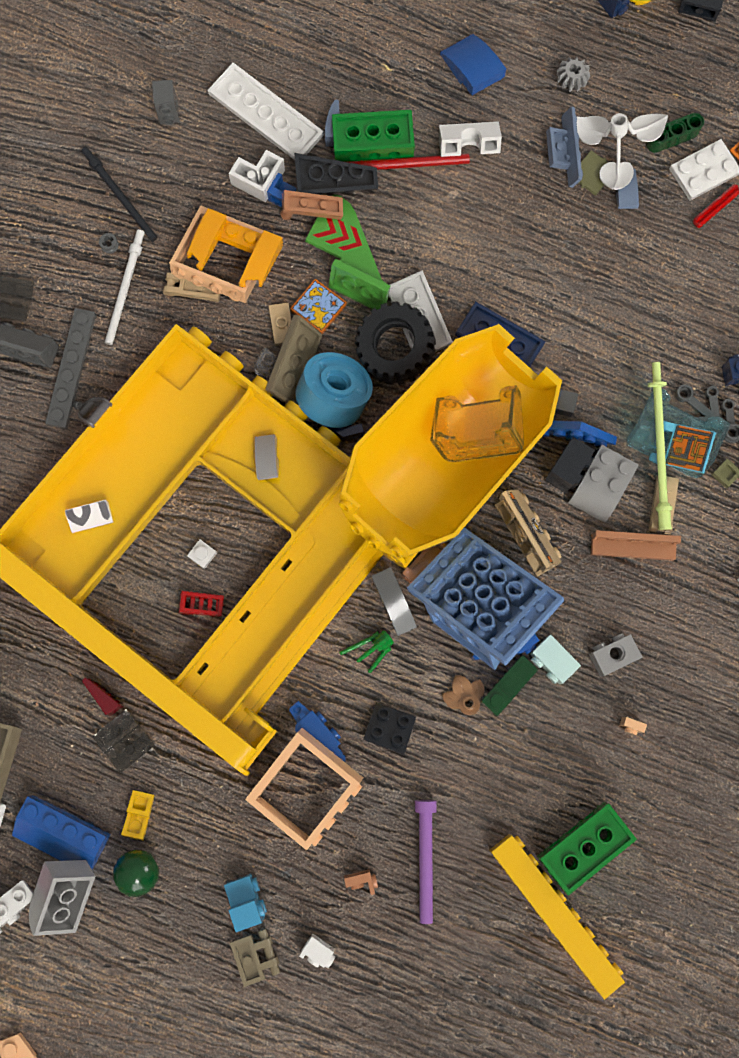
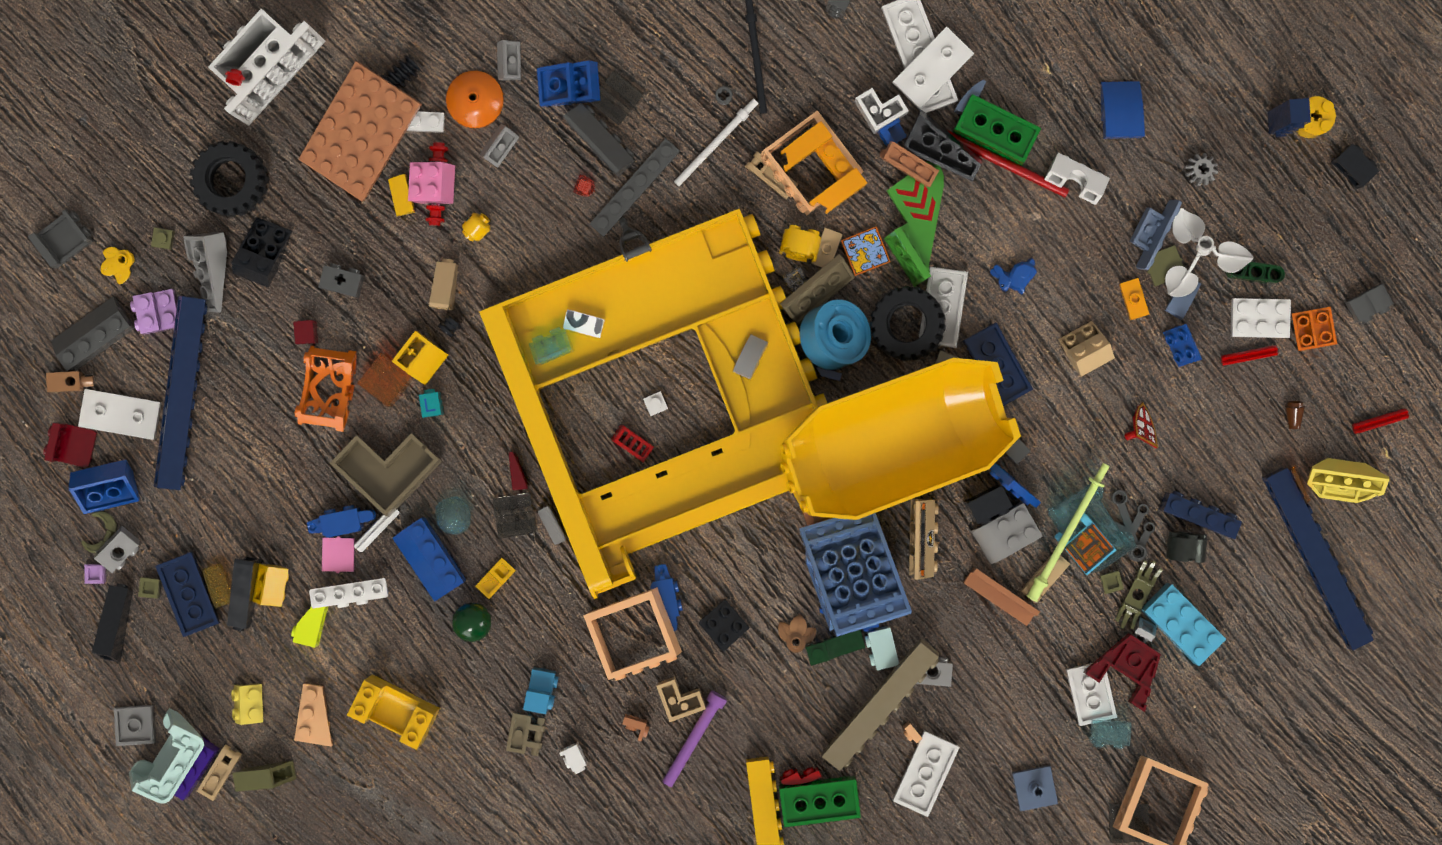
camera: 30 degrees right, 10 degrees up
(22, 393) = (584, 186): none -> clear red tile
(60, 897) = (407, 607): light grey brick -> none
(61, 776) = (453, 515): none -> clear light blue hair
(68, 555) = (551, 346): none -> clear light blue slope
(103, 1014) = (394, 710): none -> yellow piece
(165, 728) = (552, 525): none -> light grey slope
(253, 329) = (800, 244): none -> yellow brick
(284, 115) = (933, 68): none -> white plate
(381, 642) = (756, 556): green plant -> none
(389, 834) = (678, 704): none -> tan brick
(394, 601) = (784, 530): slope -> none
(469, 253) = (1017, 277): none -> blue animal
(479, 428) = (930, 436): clear yellow windscreen -> none
(546, 839) = (792, 777): none -> red slope
(571, 278) = (1087, 348): none -> tan slope
(585, 214) = (1134, 299): none -> light orange plate
(587, 715) = (881, 704): none -> dark tan brick
(654, 226) = (1182, 345): none -> blue hinge
(664, 318) = (1143, 427): none -> shield
(671, 758) = (926, 773): none -> white plate

